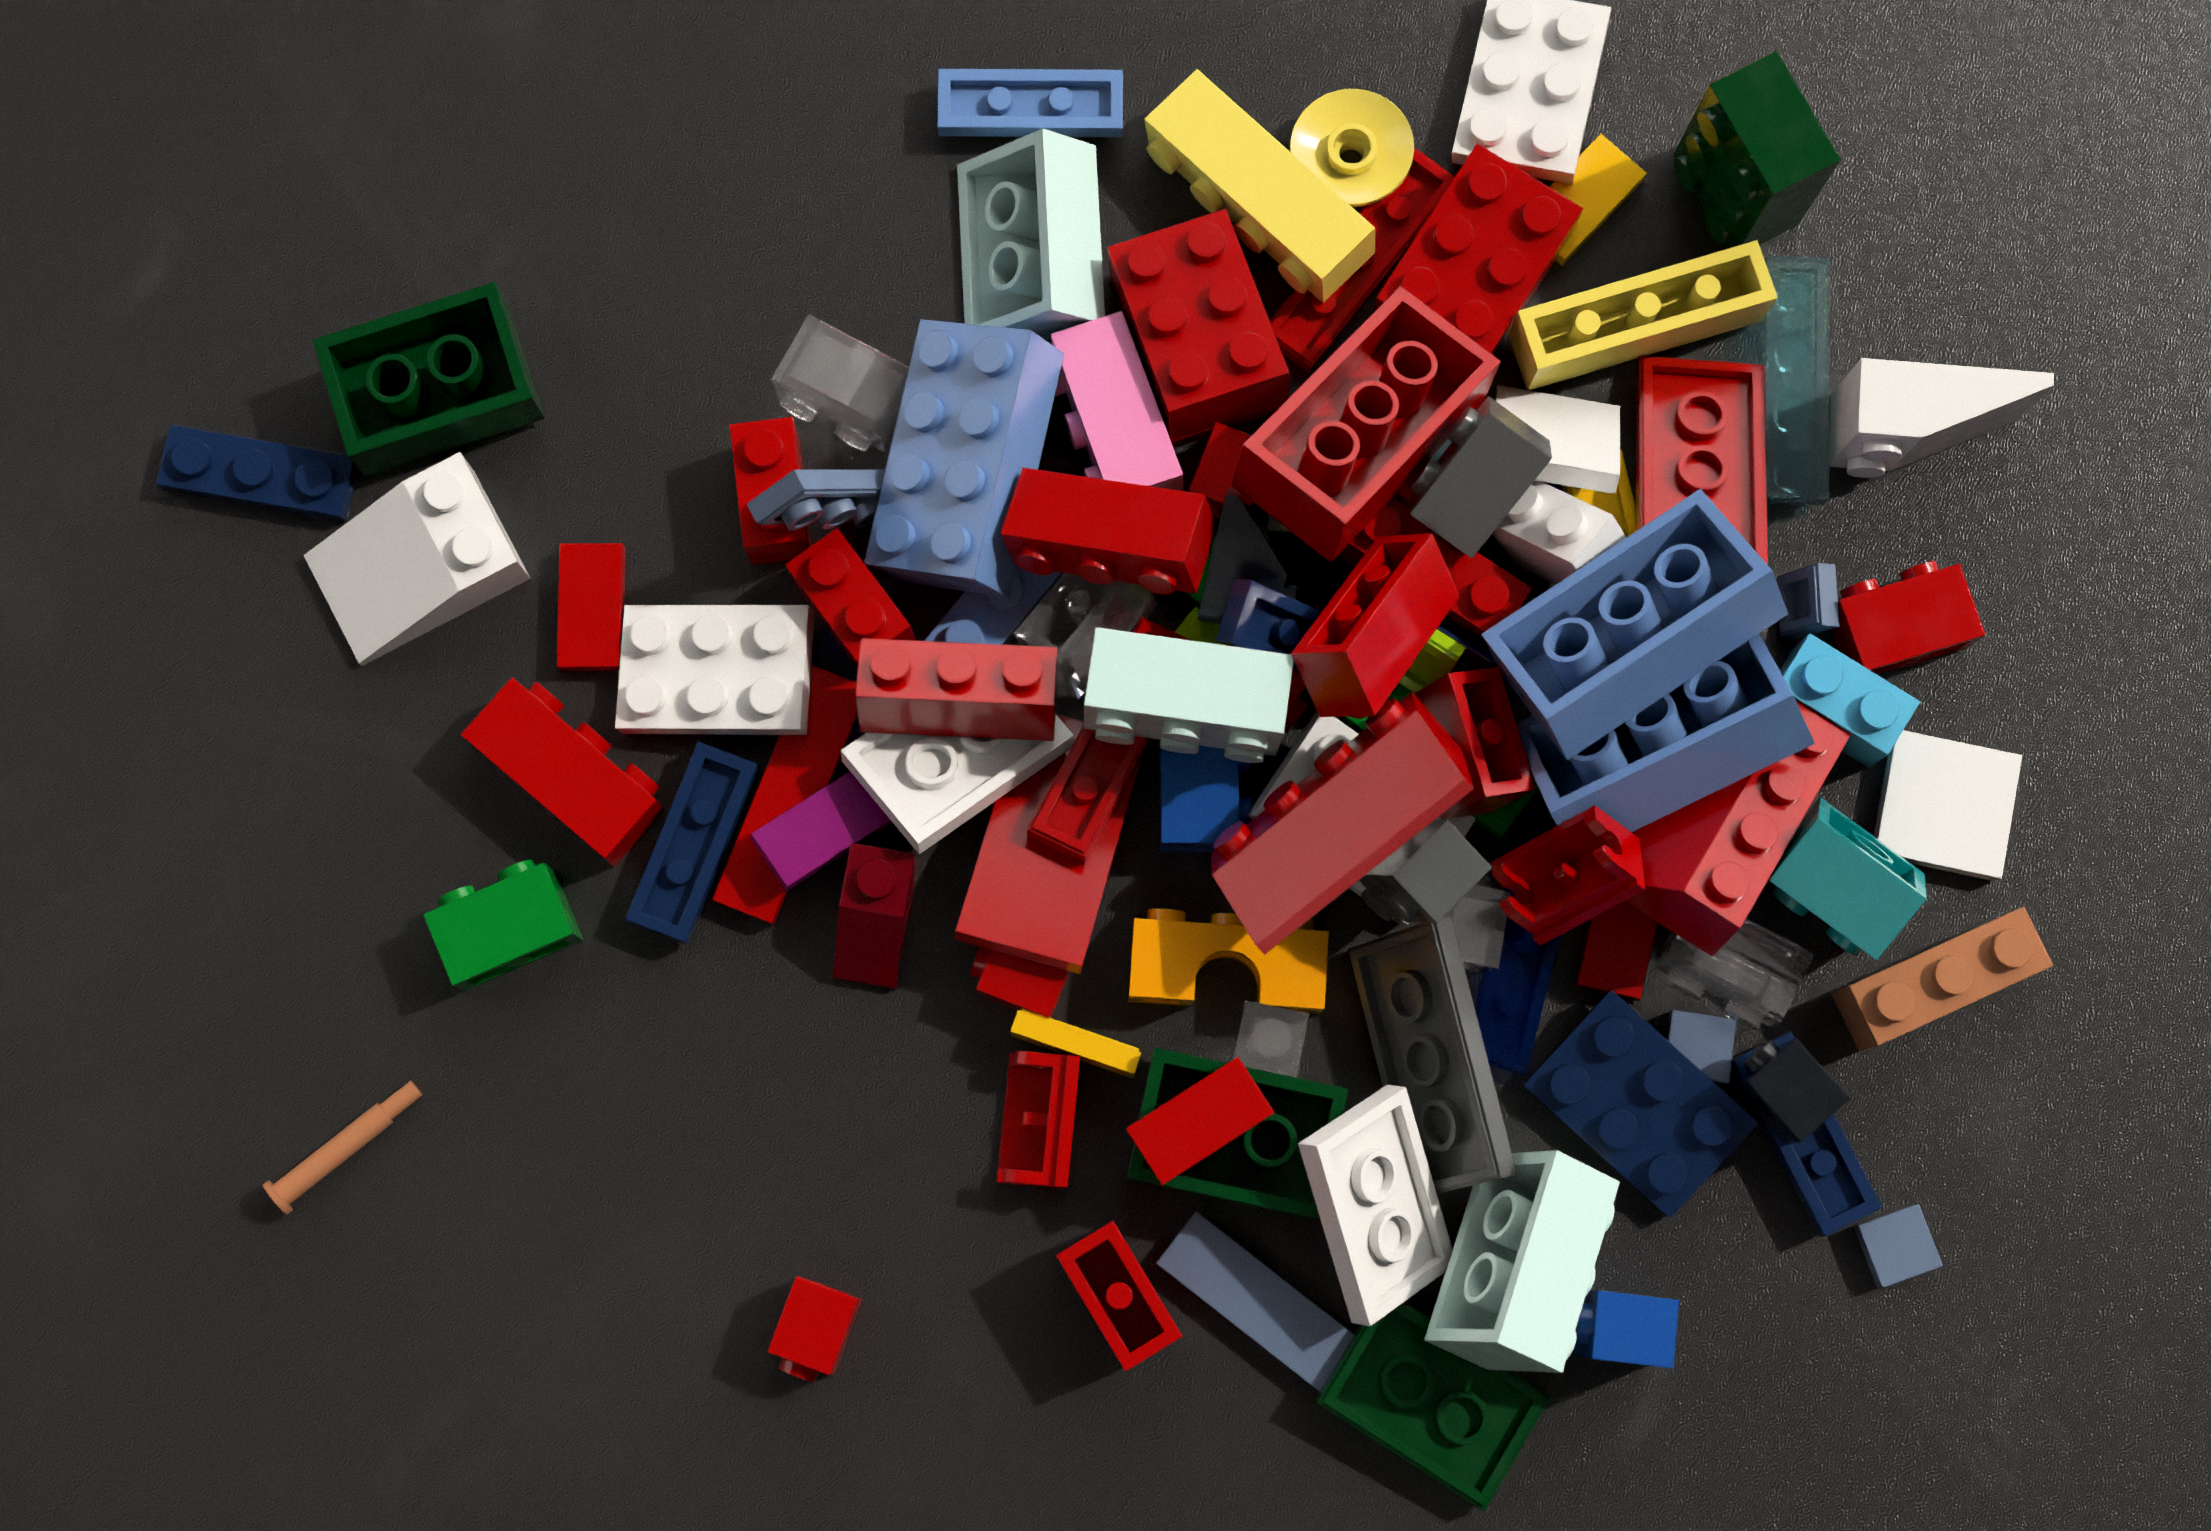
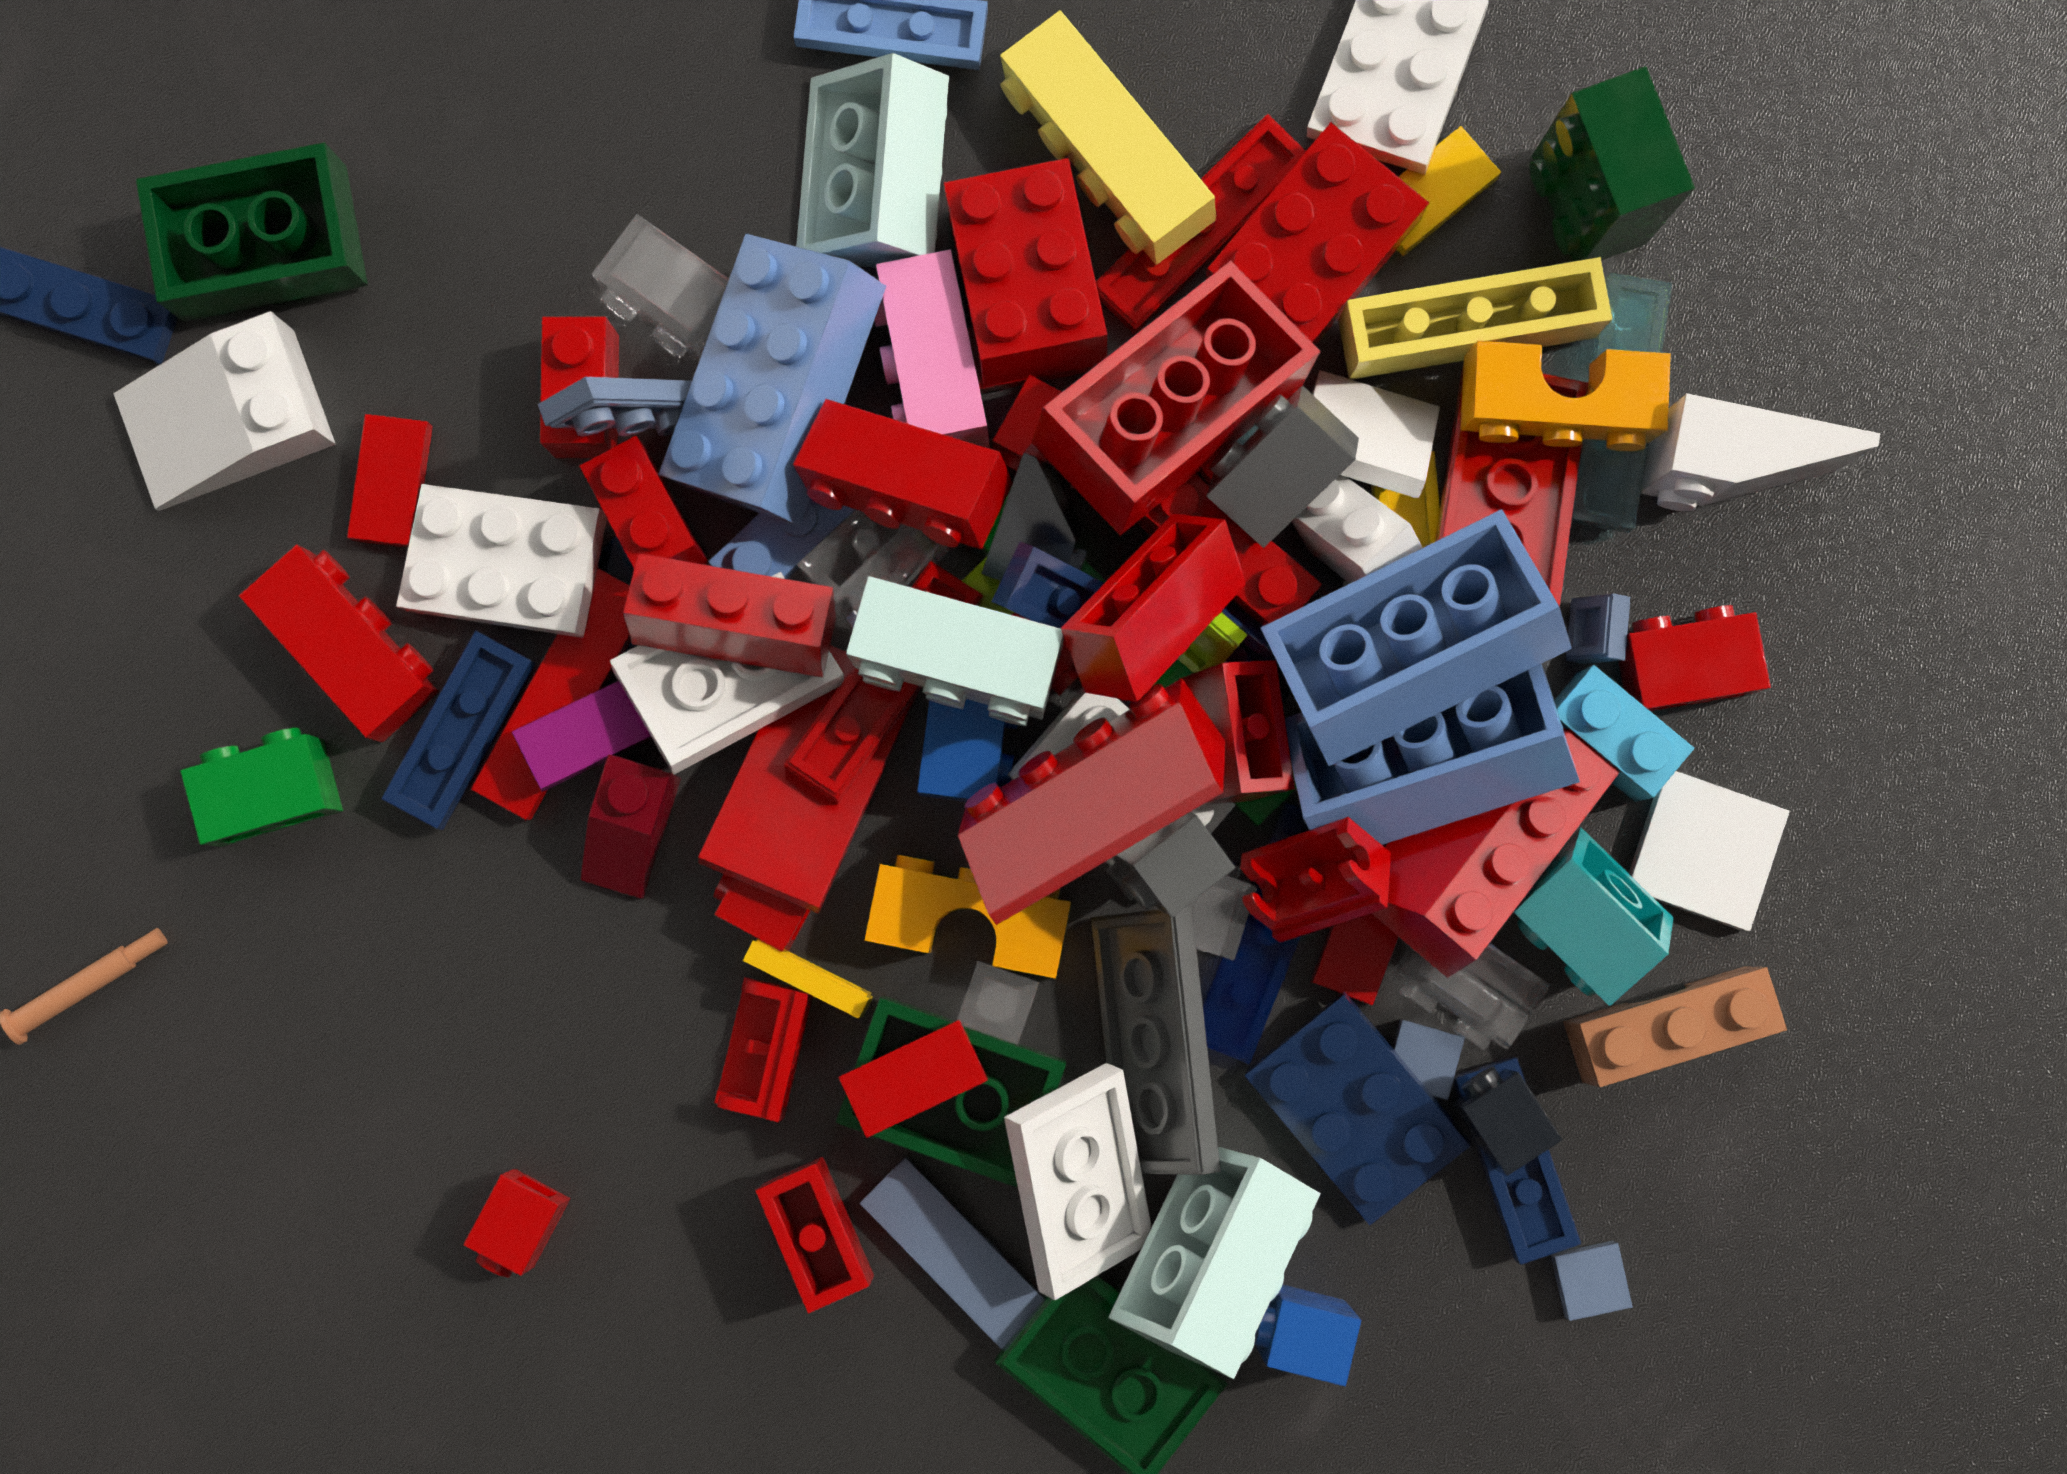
camera: 10 degrees right, 5 degrees up
(1359, 123) = (1212, 83): light yellow dish -> none
(1689, 384) = (1510, 398): none -> light orange arch

